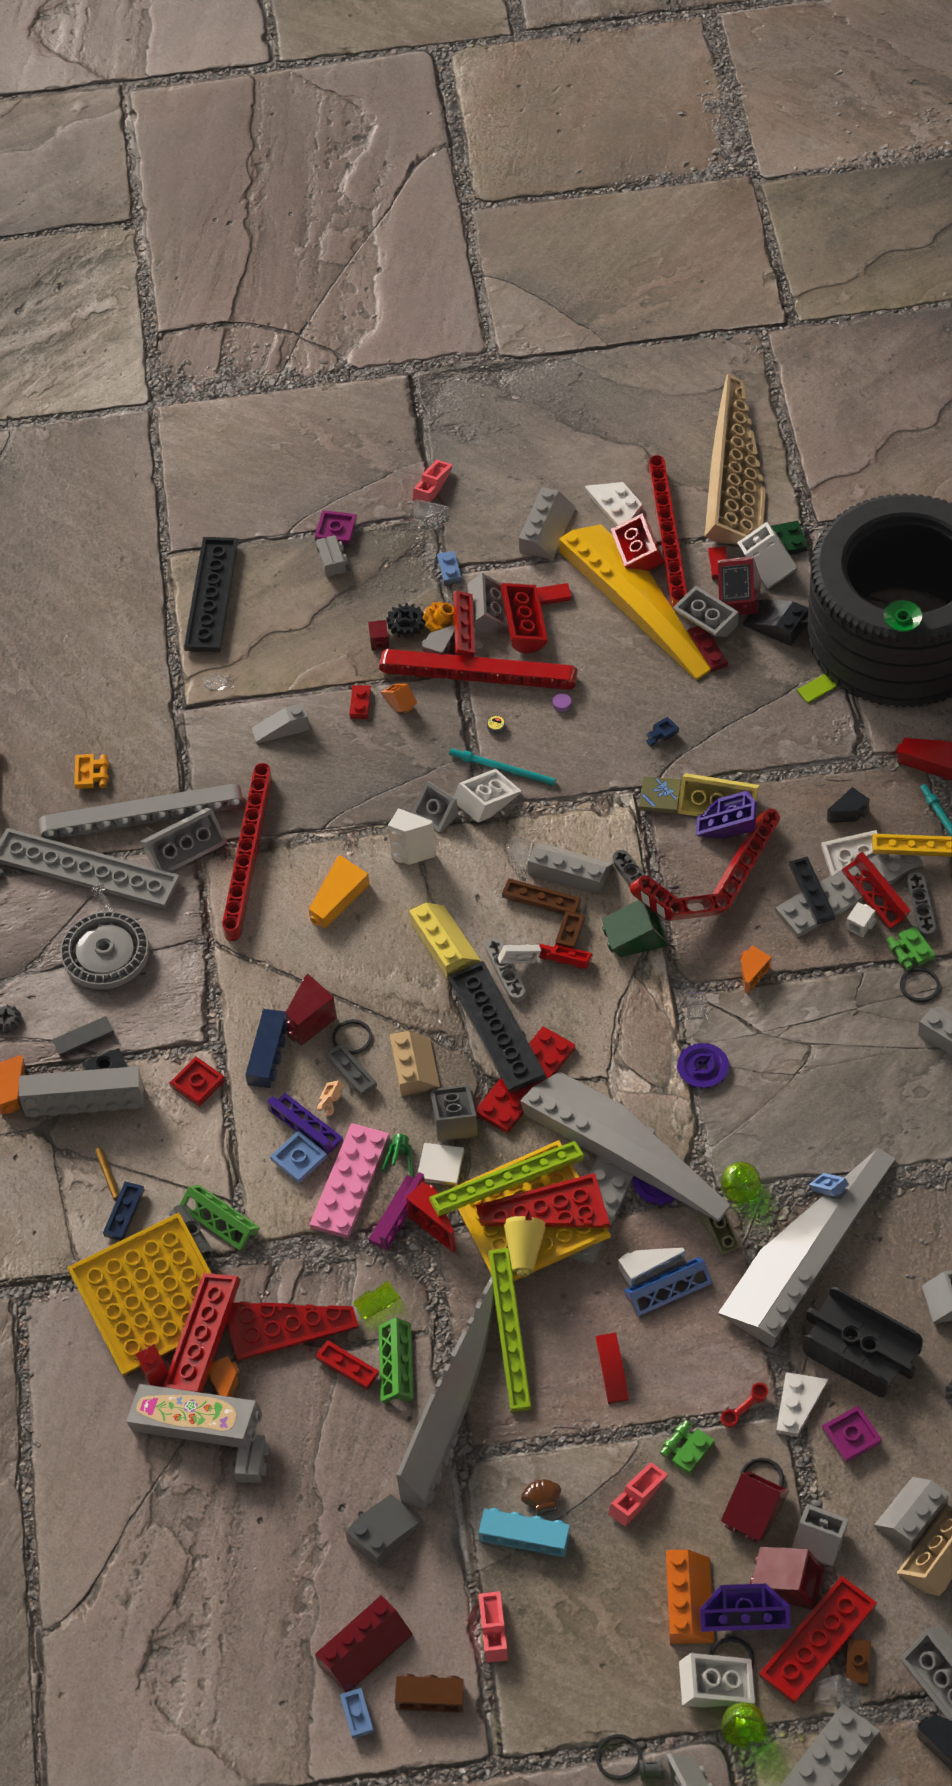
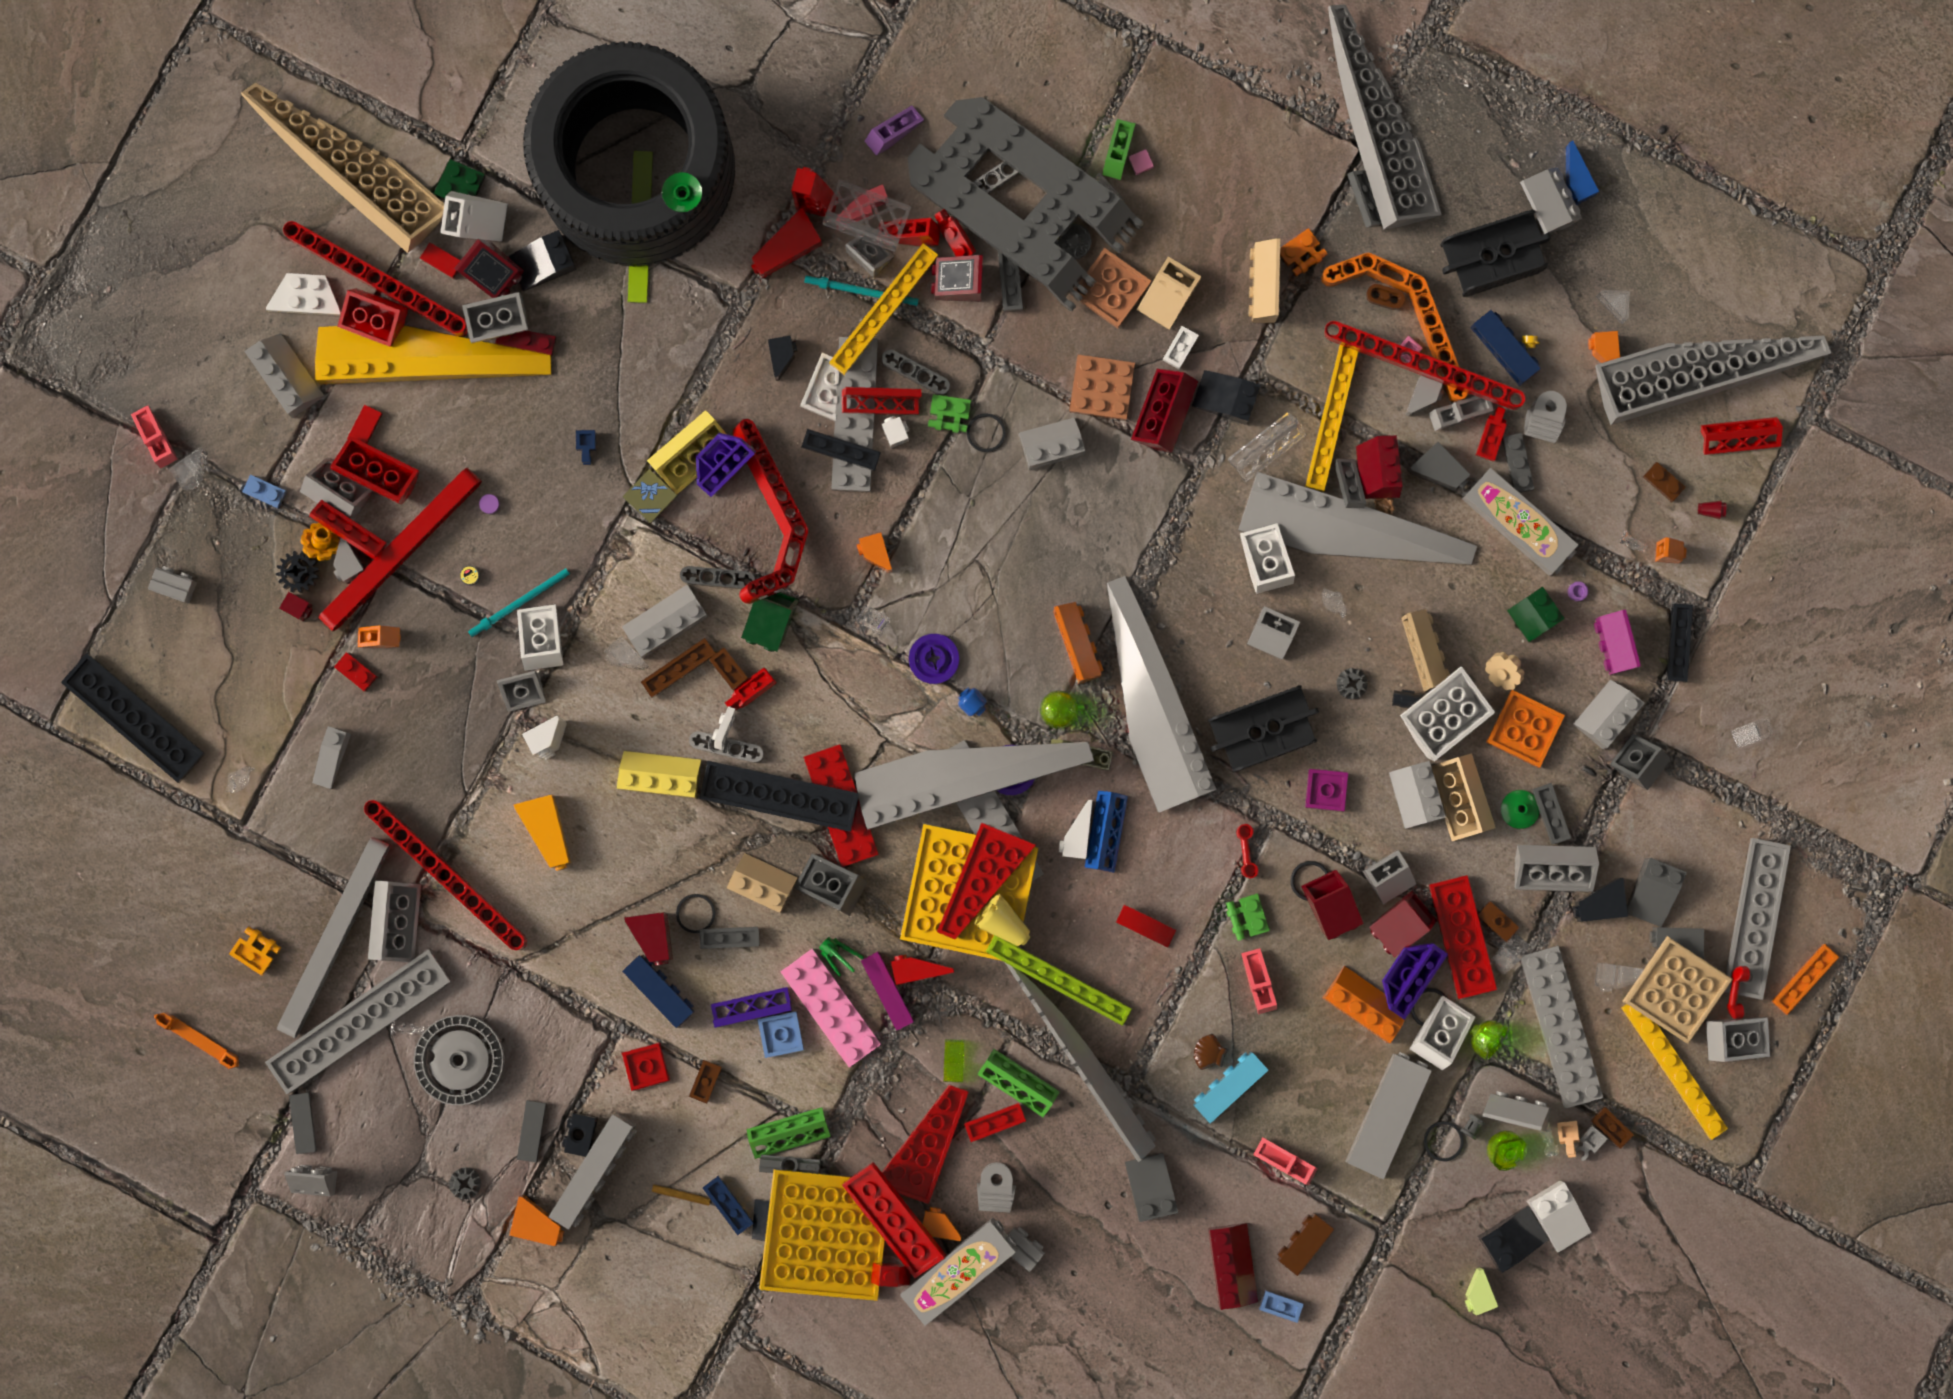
camera: 60 degrees left, 30 degrees up
(217, 1128) = (705, 1081): none -> reddish brown plate
(289, 1400) = (996, 1196): none -> light grey piece
(330, 1094) = (741, 970): light nougat plate -> none
(336, 524) = (140, 558): magenta plate -> none
(441, 1163) = (869, 927): white tile -> none
(506, 1178) = (934, 893): lime tile -> none
(604, 1685) = (1388, 1115): none -> light grey brick
(691, 1113) = (972, 702): none -> blue head
(797, 1401) = (1270, 808): white wing -> none
(807, 1153) = (1077, 642): none -> orange slope
(829, 1184) = (1115, 647): medium blue plate -> none

